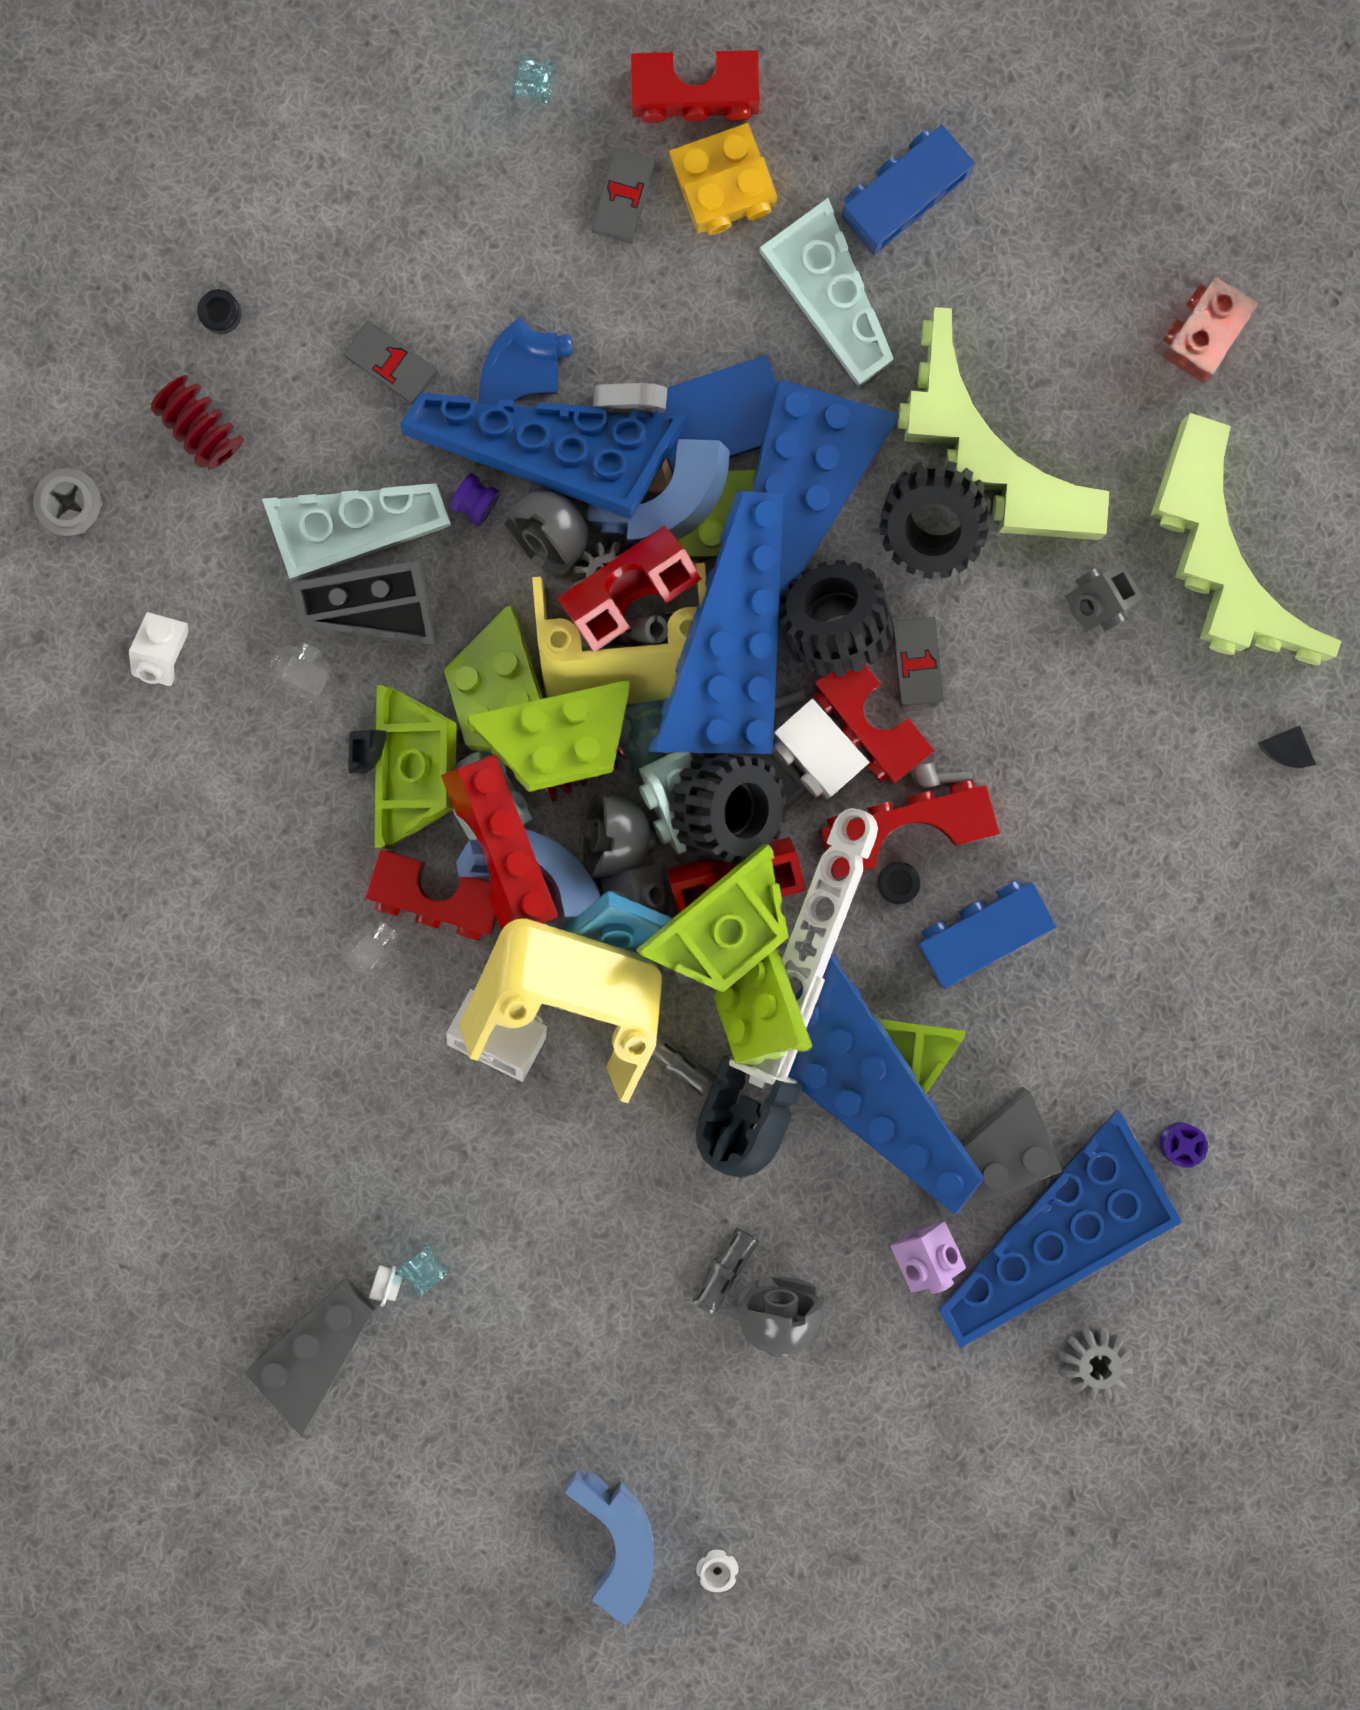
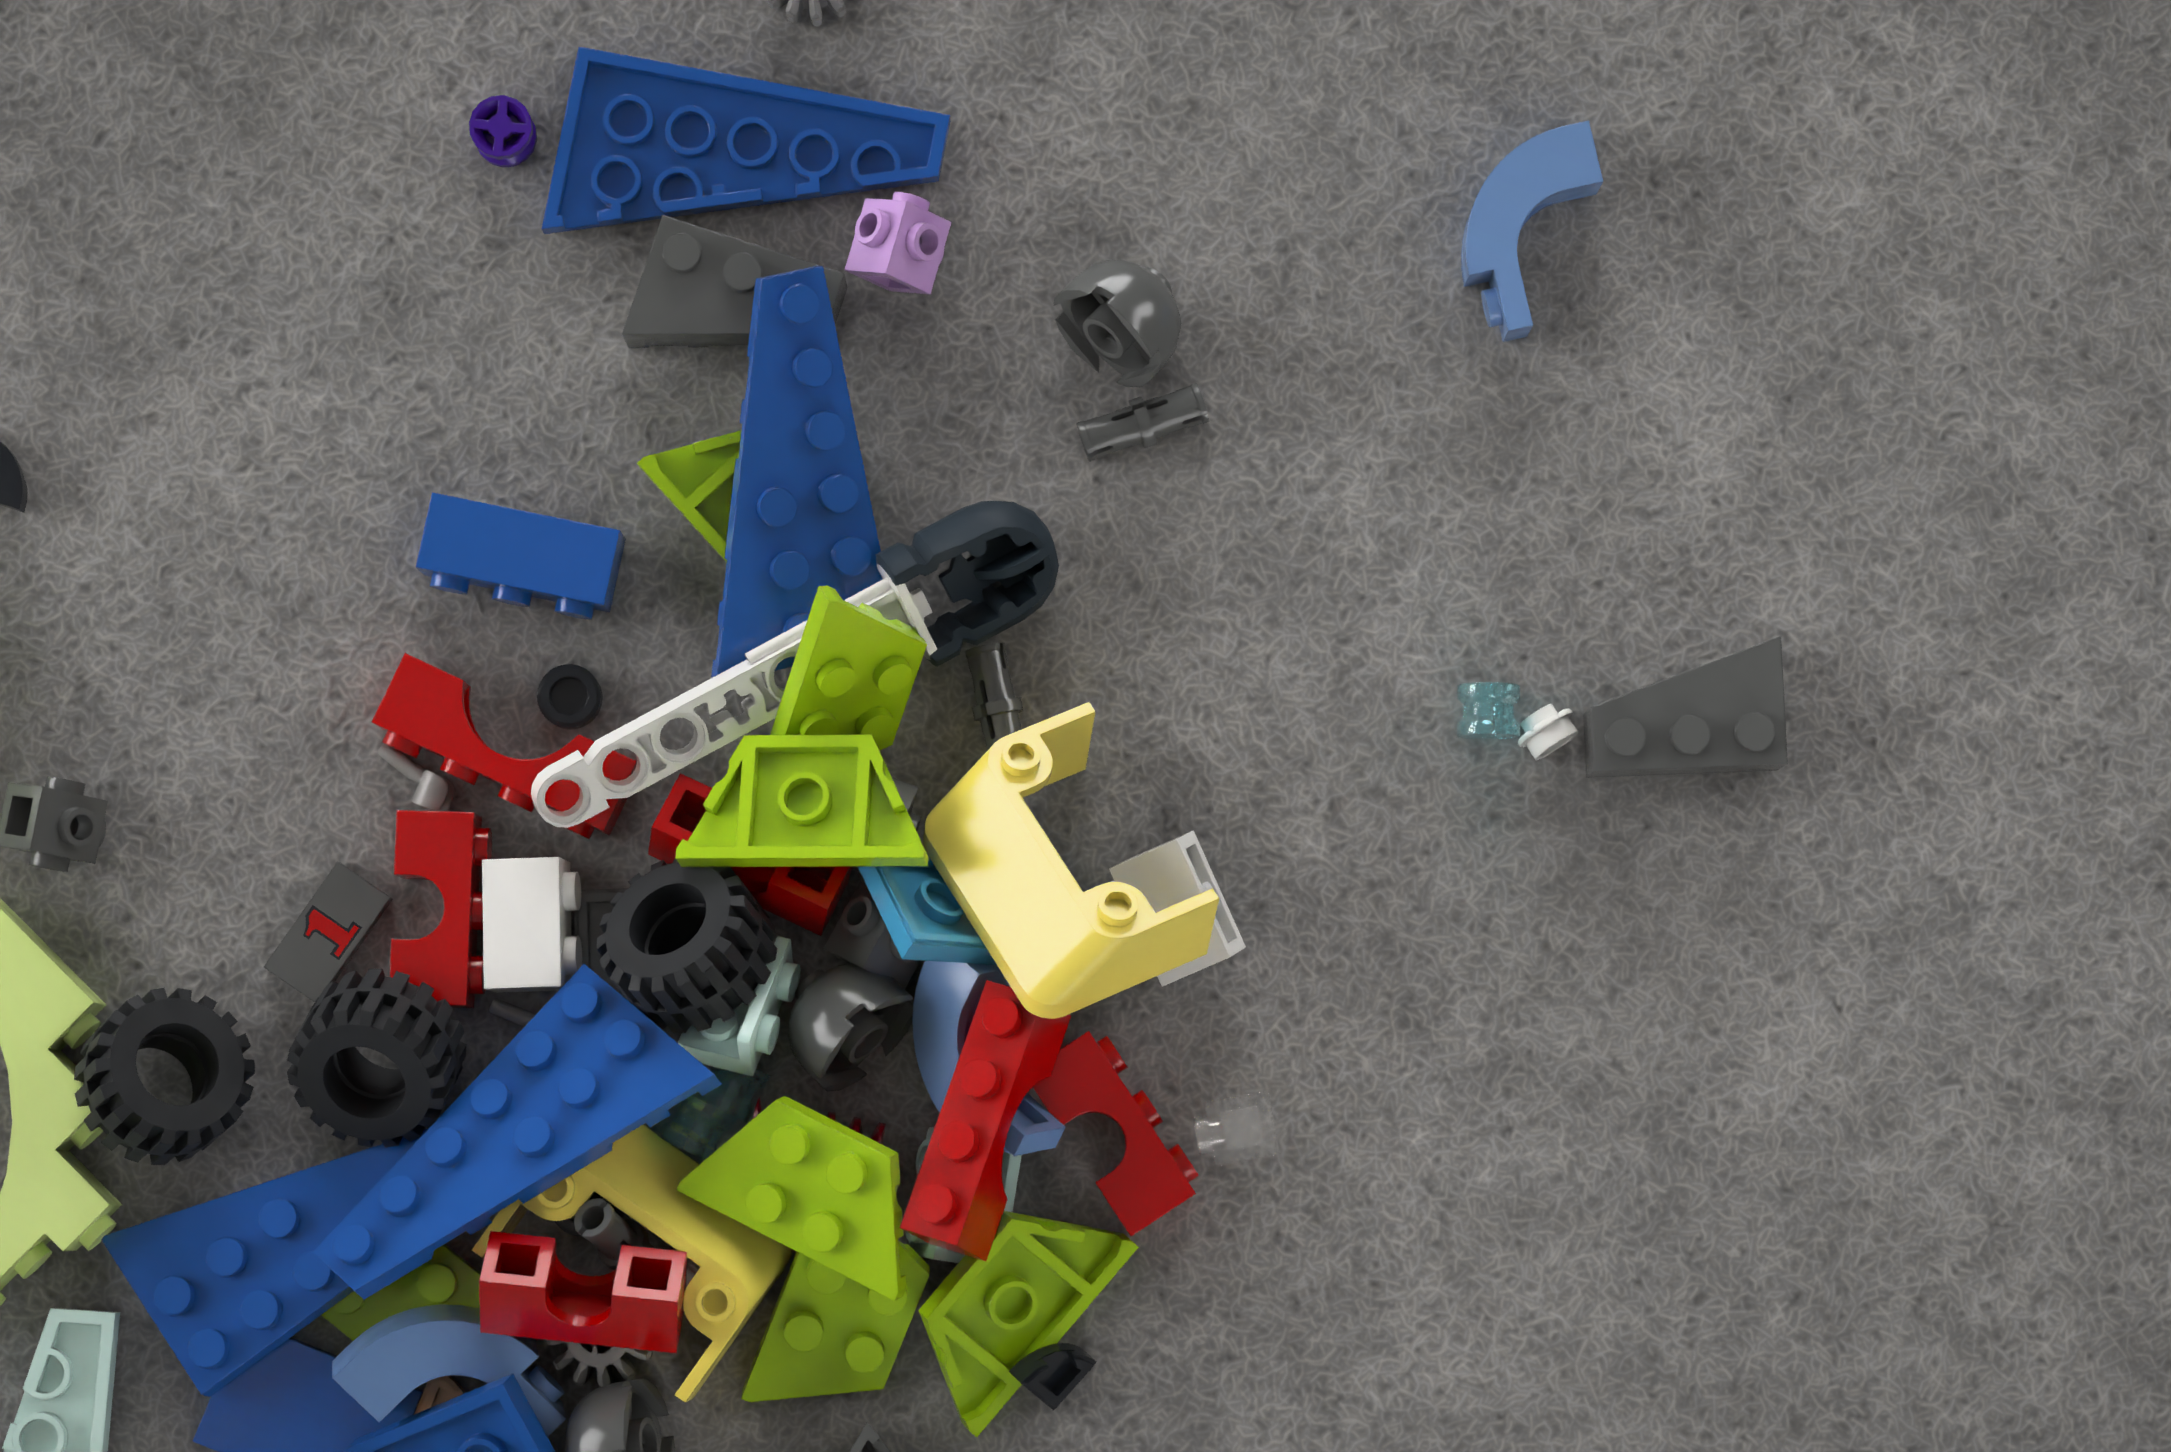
camera: 140 degrees left, 5 degrees down
(717, 1582) = (1441, 80): white plate -> none

